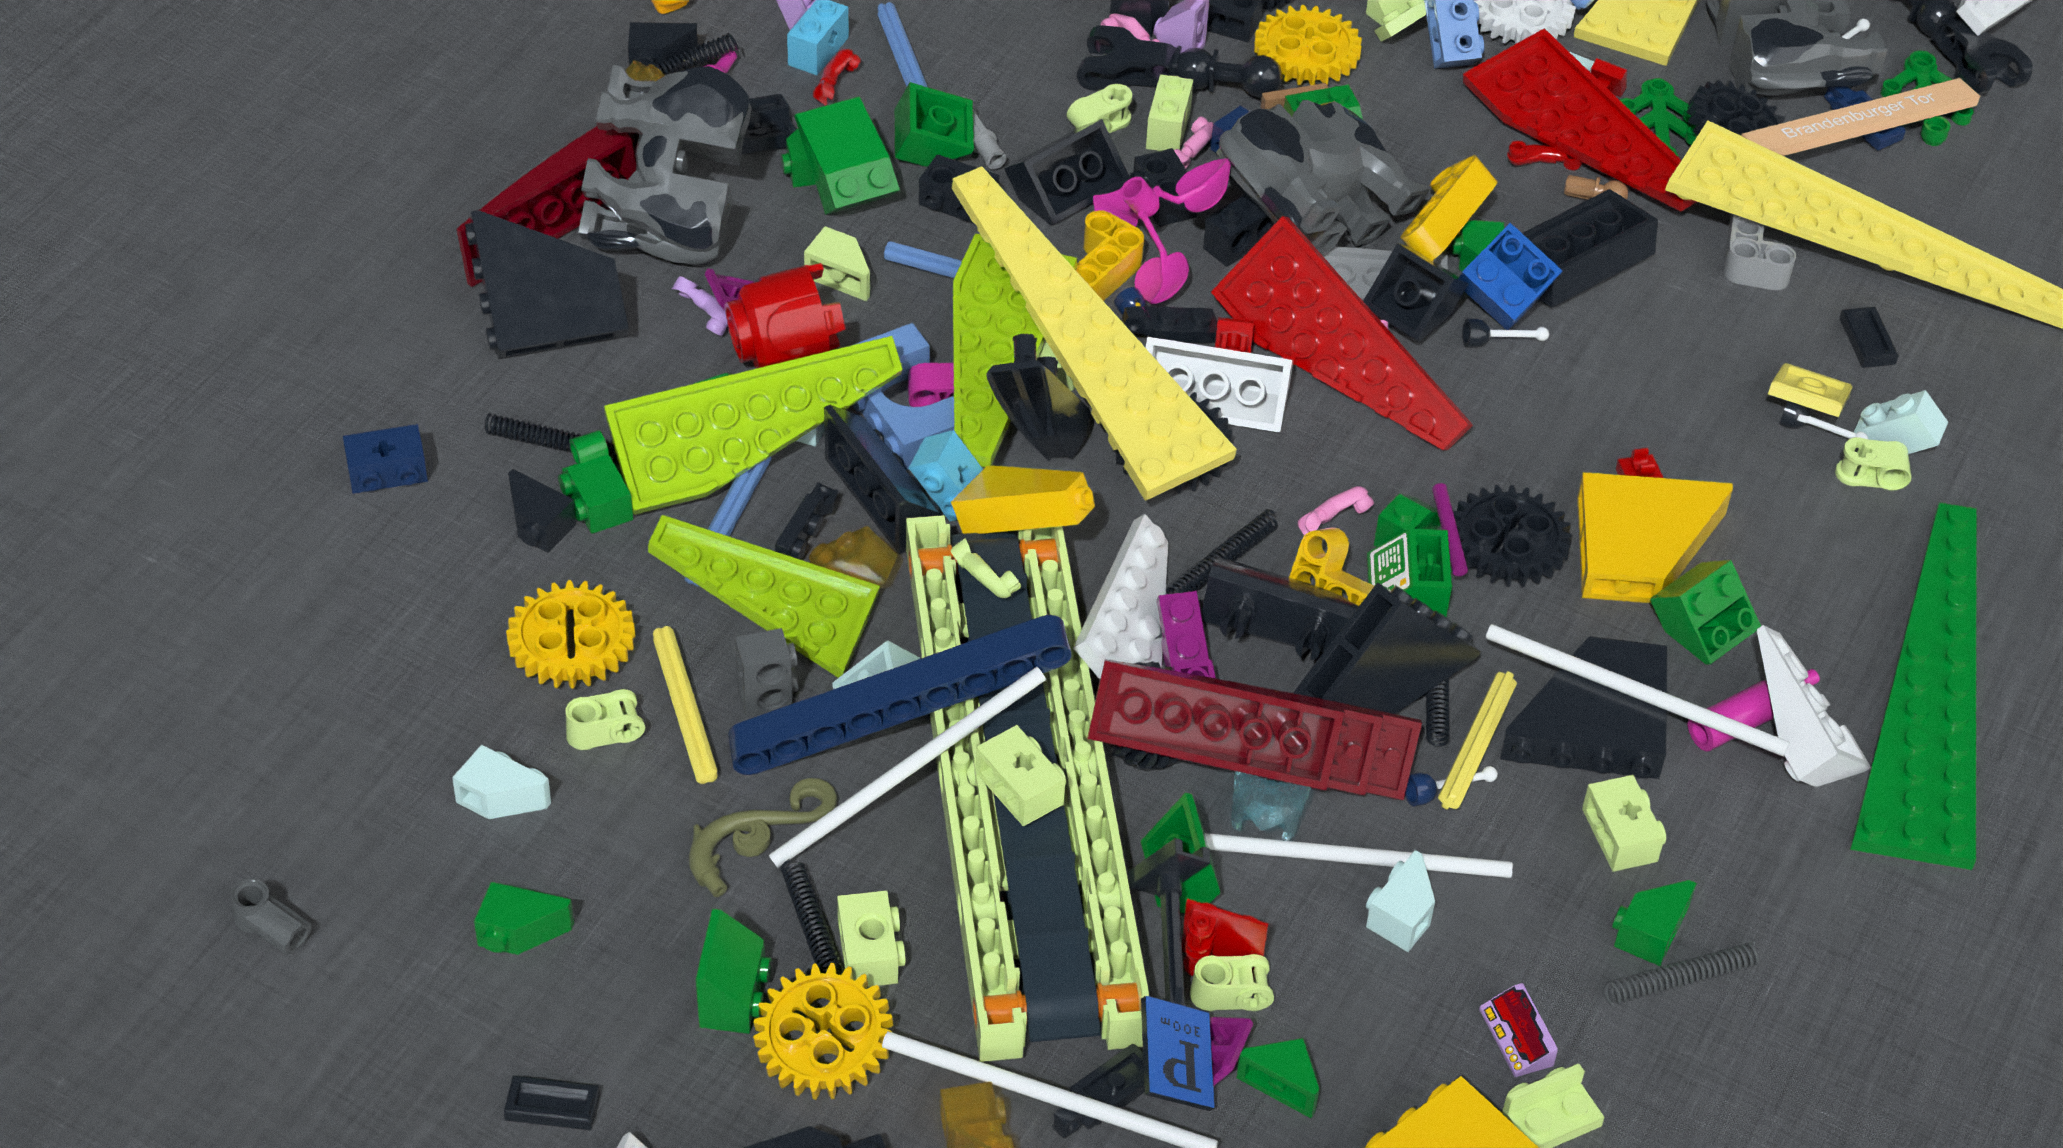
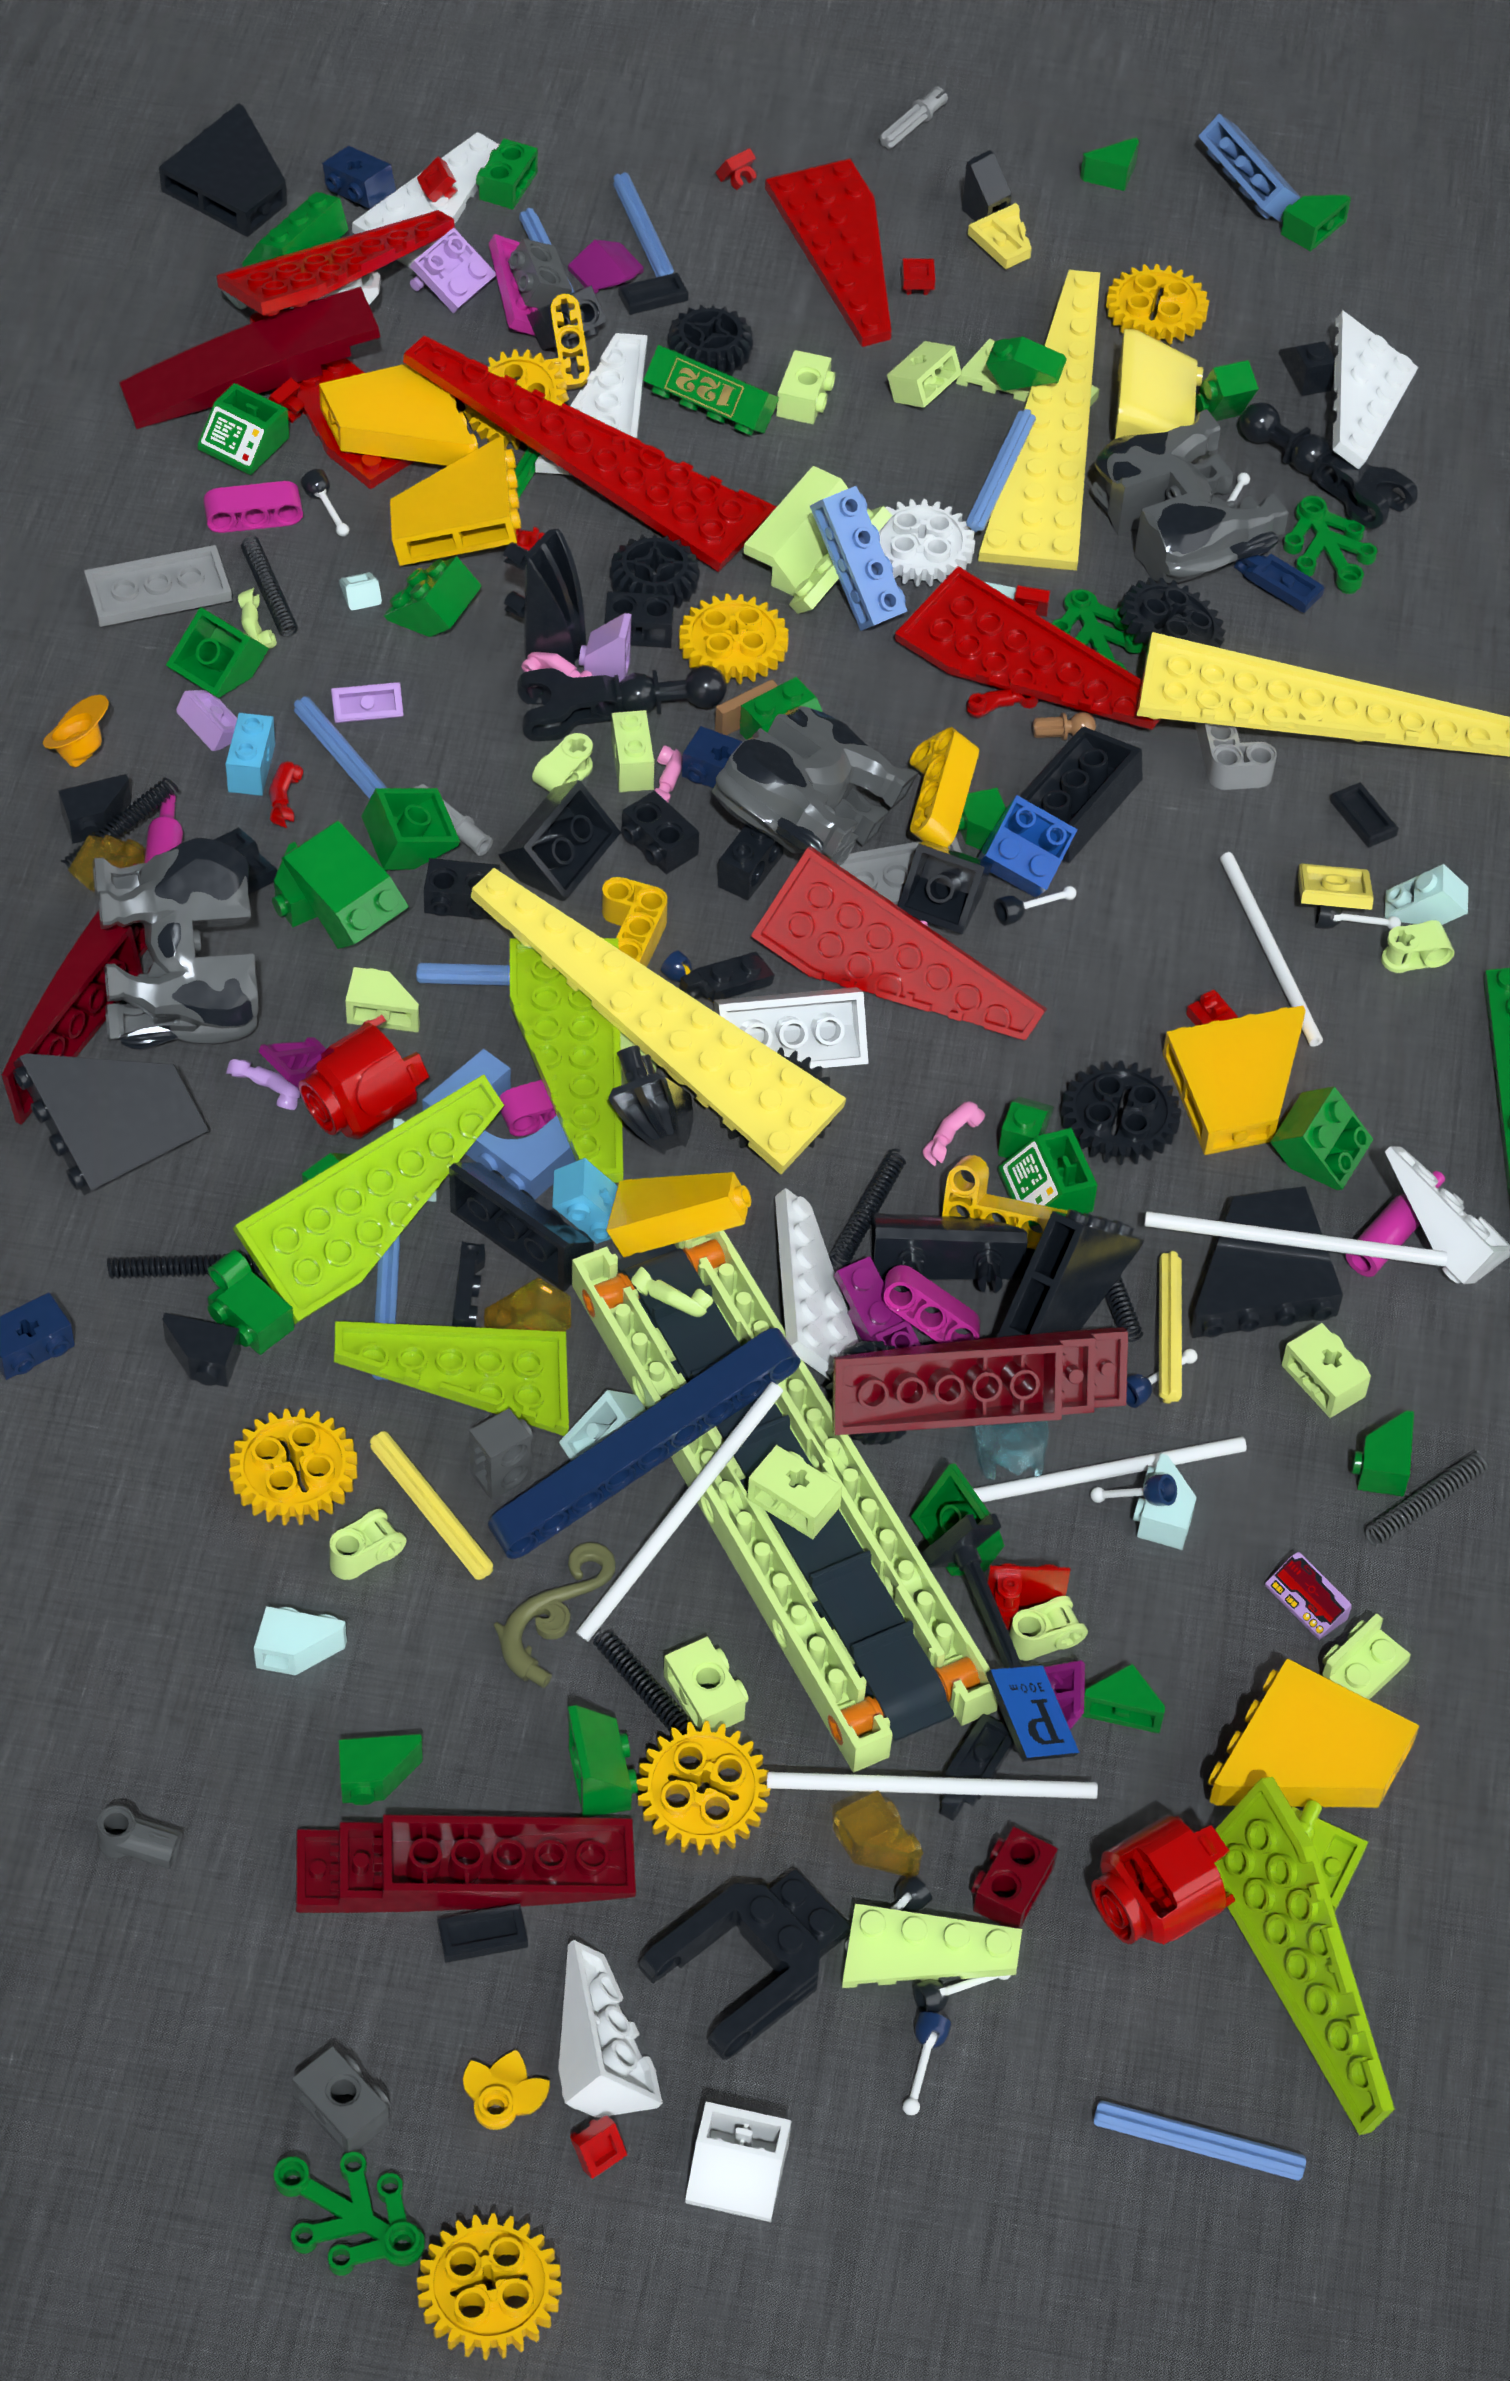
camera: 20 degrees left, 5 degrees up
(562, 1032) = (463, 1863): none -> dark red slope
(945, 21) = (367, 702): none -> lavender slope
(1198, 189) = (709, 832): dark pink plant -> none
(1234, 334) = (790, 975): red tile -> none
(1236, 637) = (926, 1294): none -> dark pink beam
(1393, 876) = (1158, 1491): none -> dark blue hinge
(1448, 523) = (1067, 1121): magenta bar -> none
(1724, 430) = (1269, 946): none -> white piece
(1865, 117) = (1285, 586): light nougat tile -> none

